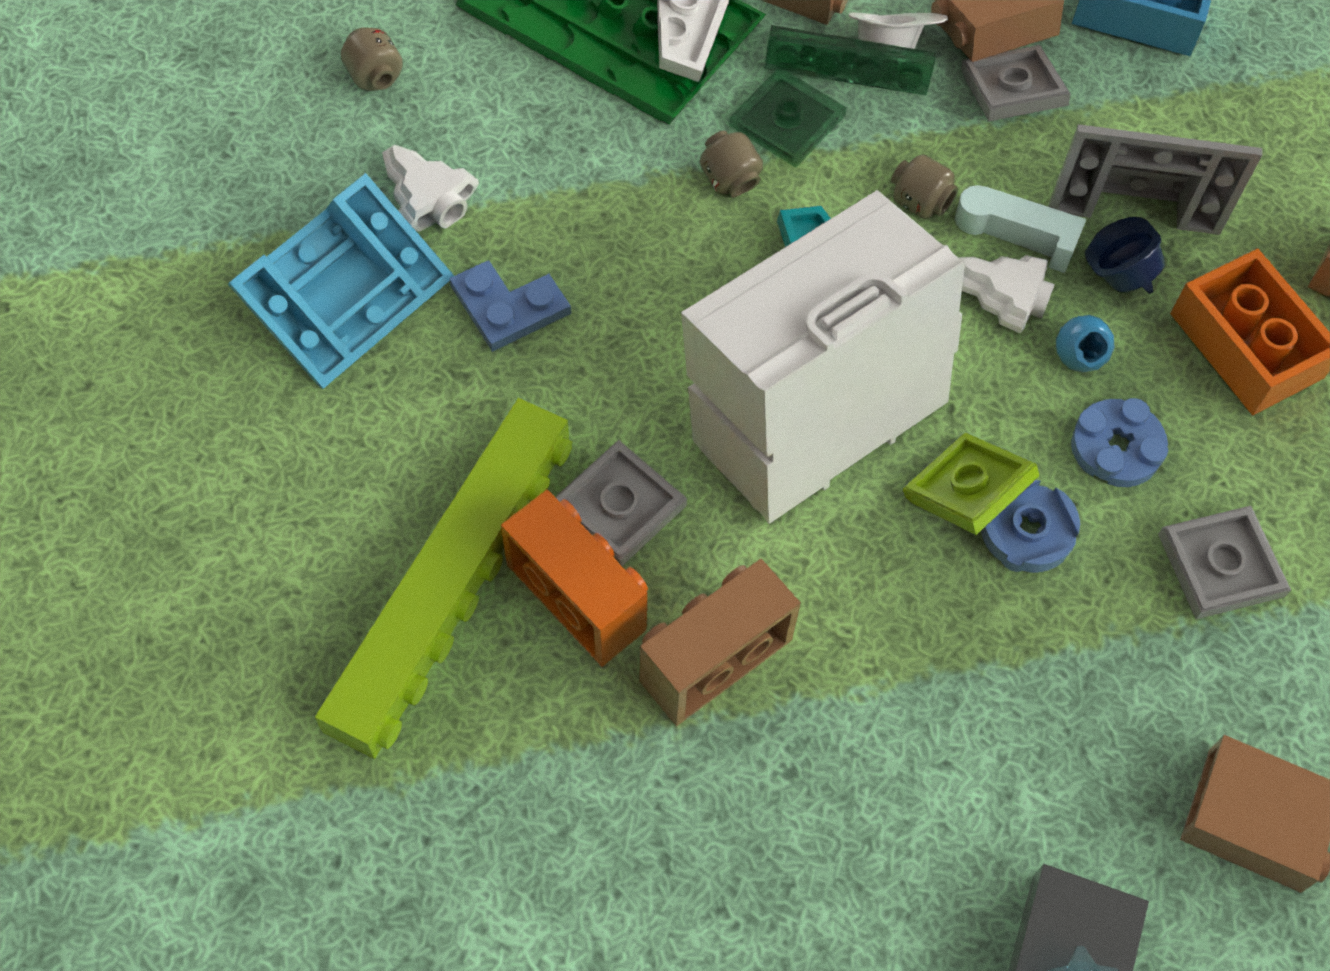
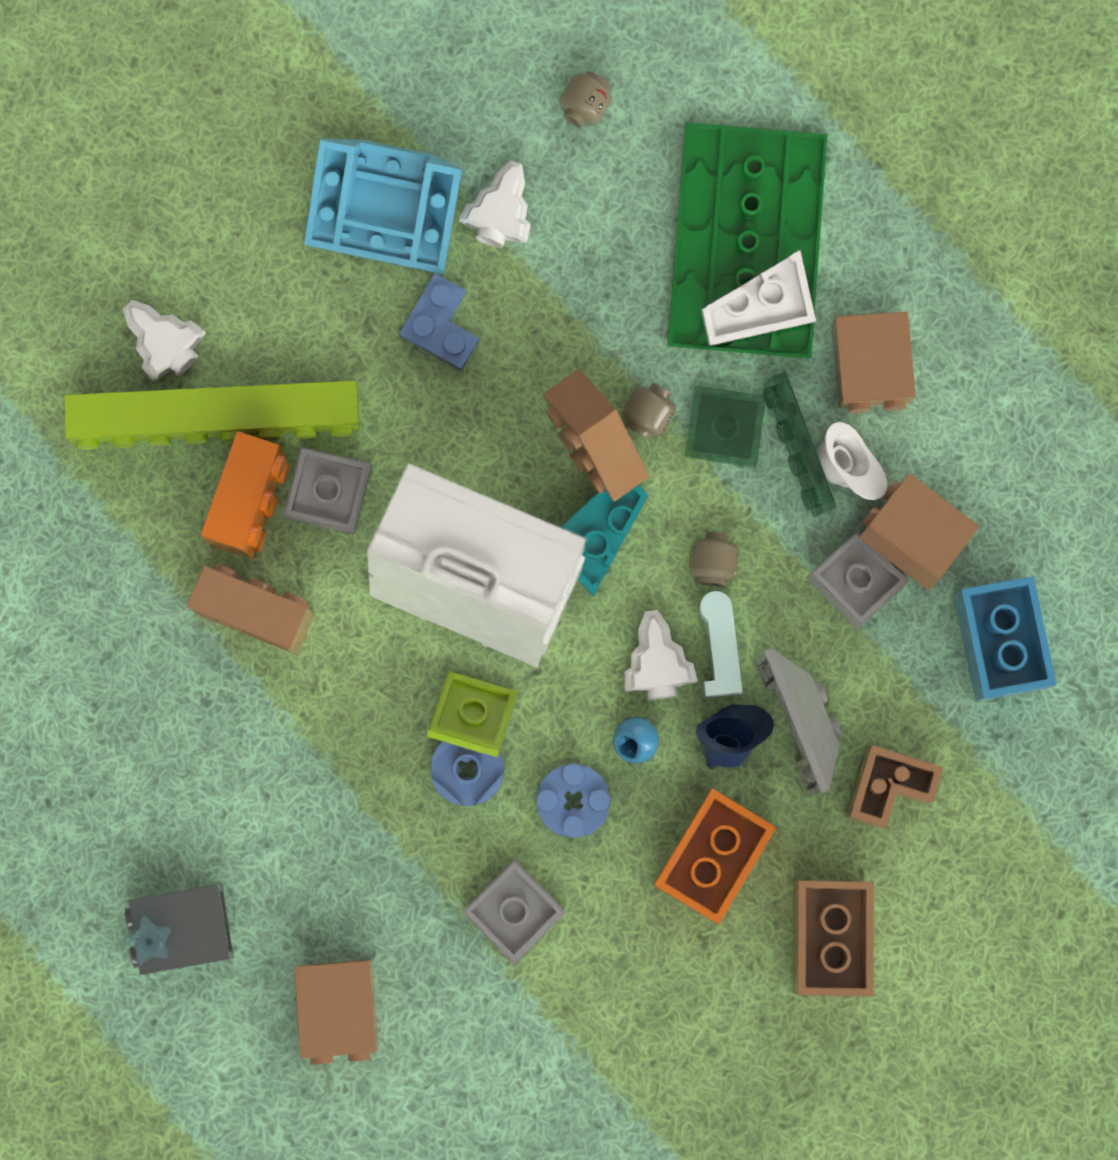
camera: 60 degrees right, 20 degrees up
(323, 584) = (162, 340): none -> white rock
(738, 189) = (595, 436): none -> medium nougat brick
(1260, 123) = (883, 777): none -> medium nougat brick

